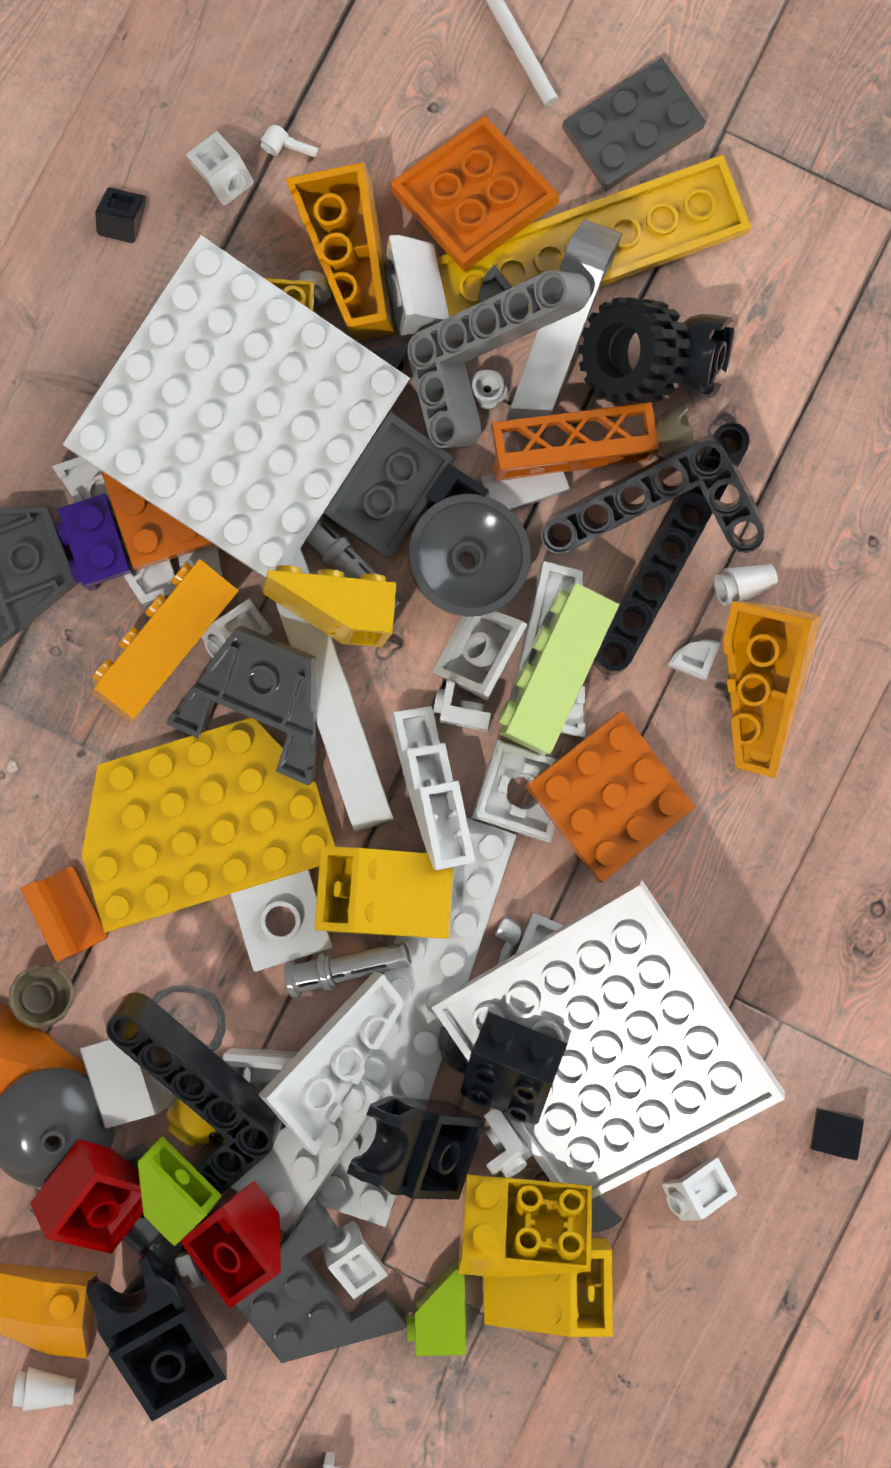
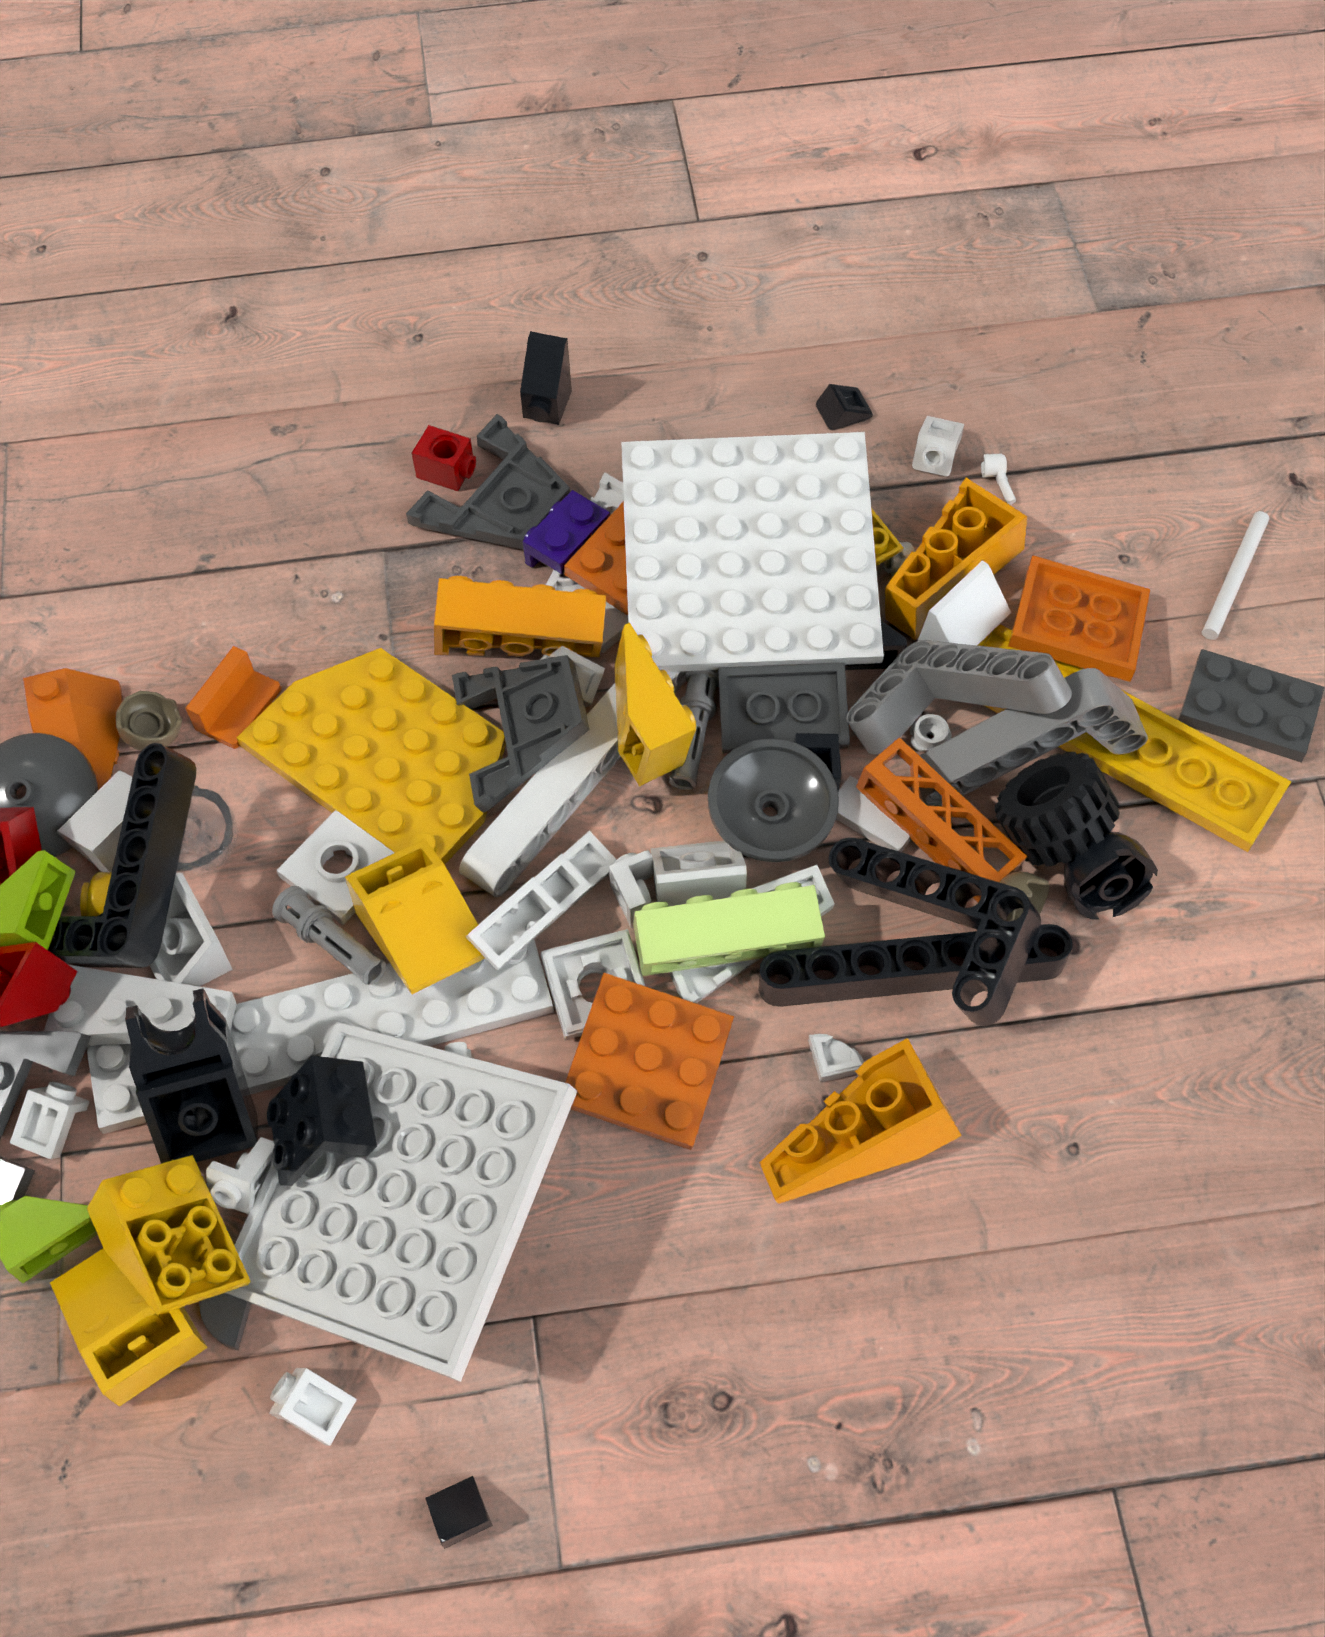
camera: 55 degrees right, 25 degrees down
(320, 1075) = (229, 961): white wing -> none
(744, 582) = (939, 1051): white cone -> none

